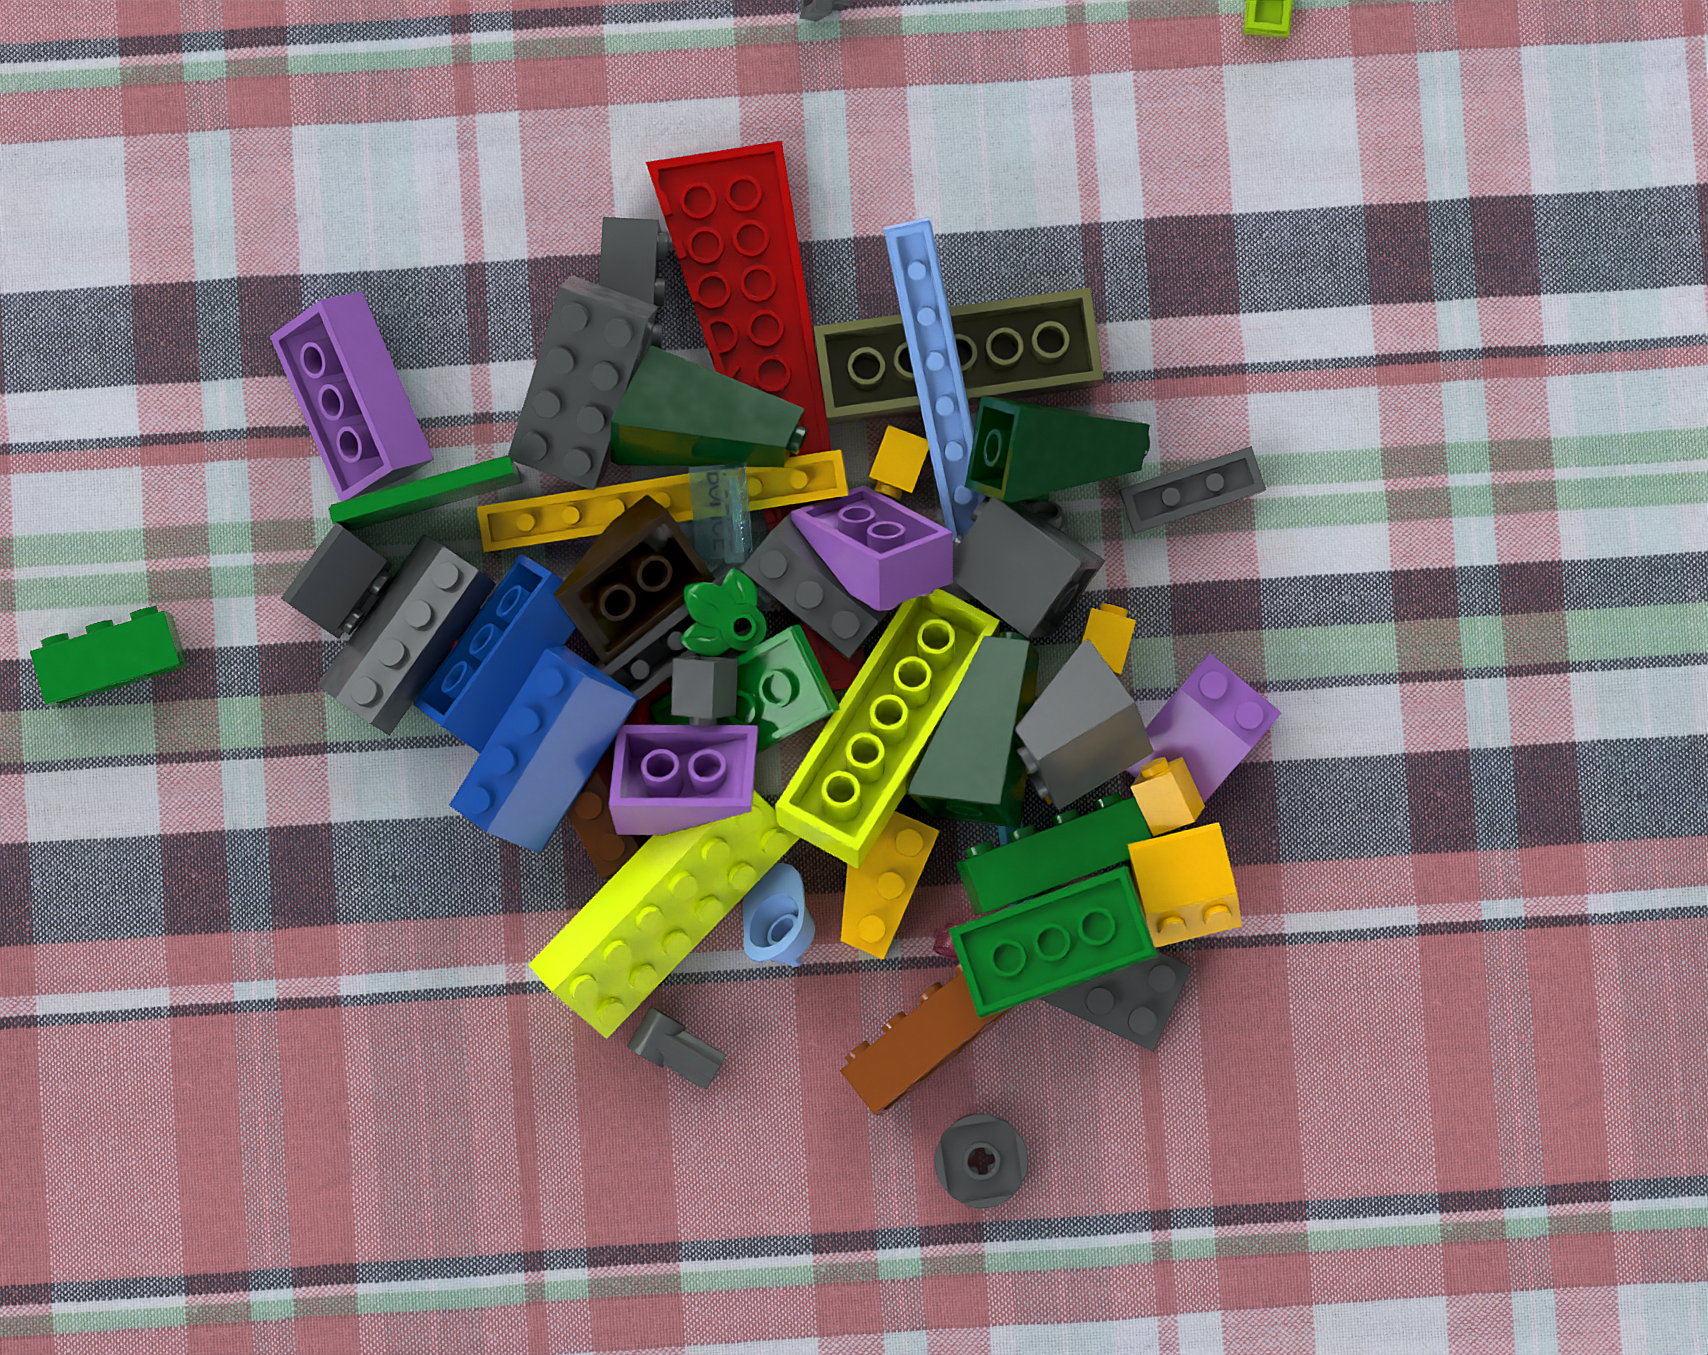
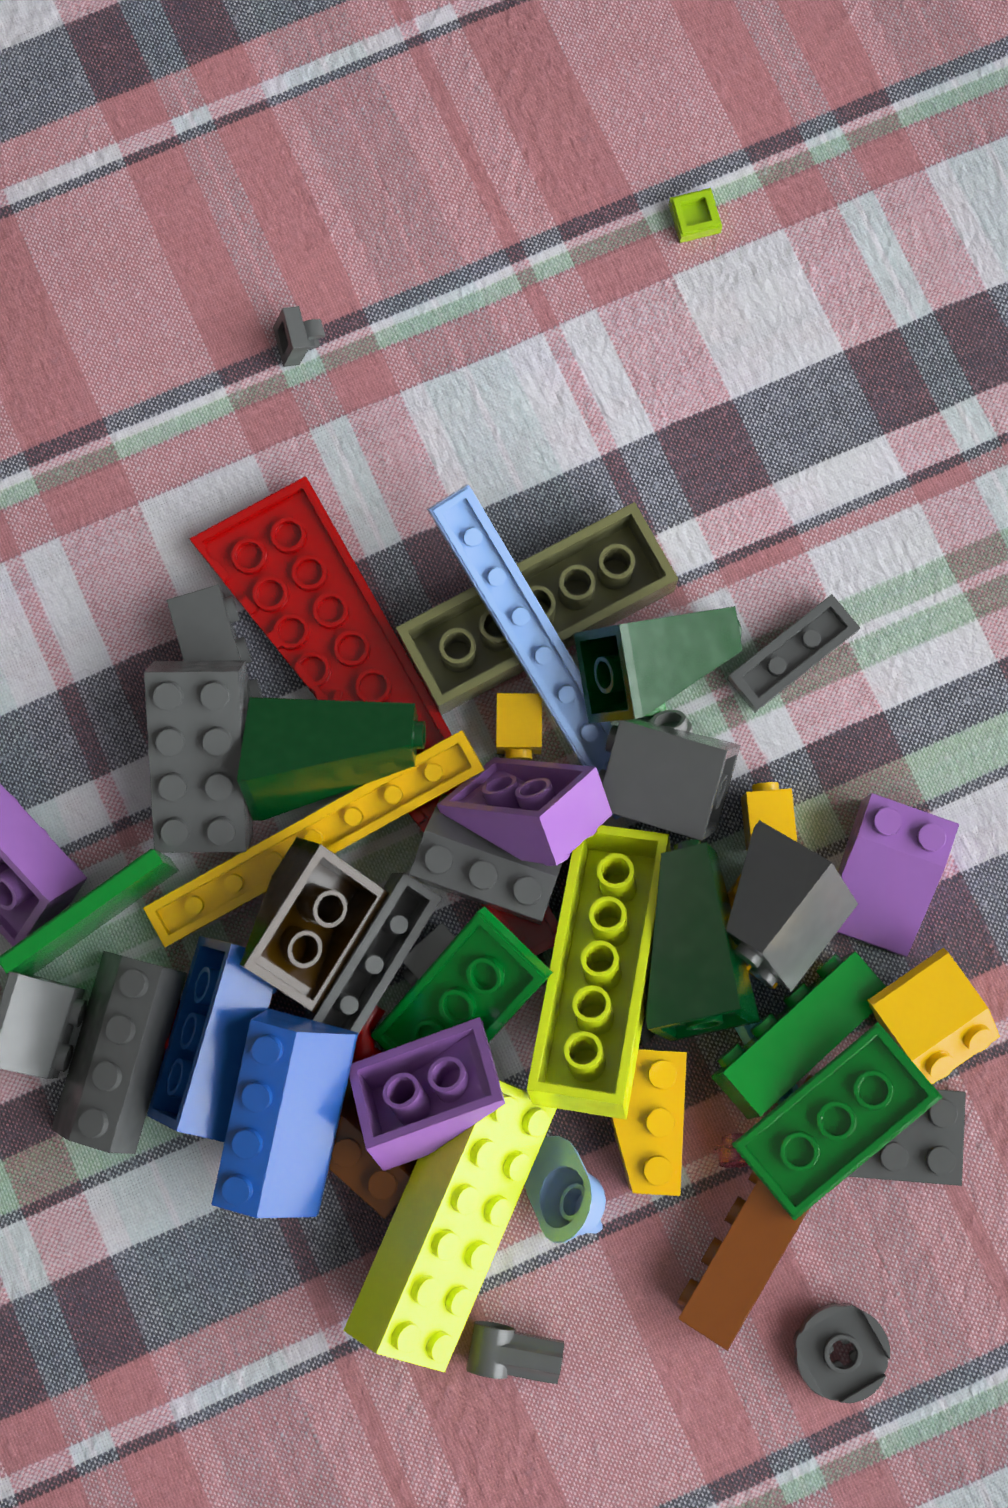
camera: 20 degrees left, 5 degrees down
(704, 688) = (416, 1000): dark grey brick -> none
(718, 610) = (403, 921): green plate -> none
(721, 512) = (372, 828): clear light blue panel -> none
(1167, 795) = (882, 940): yellow brick -> none

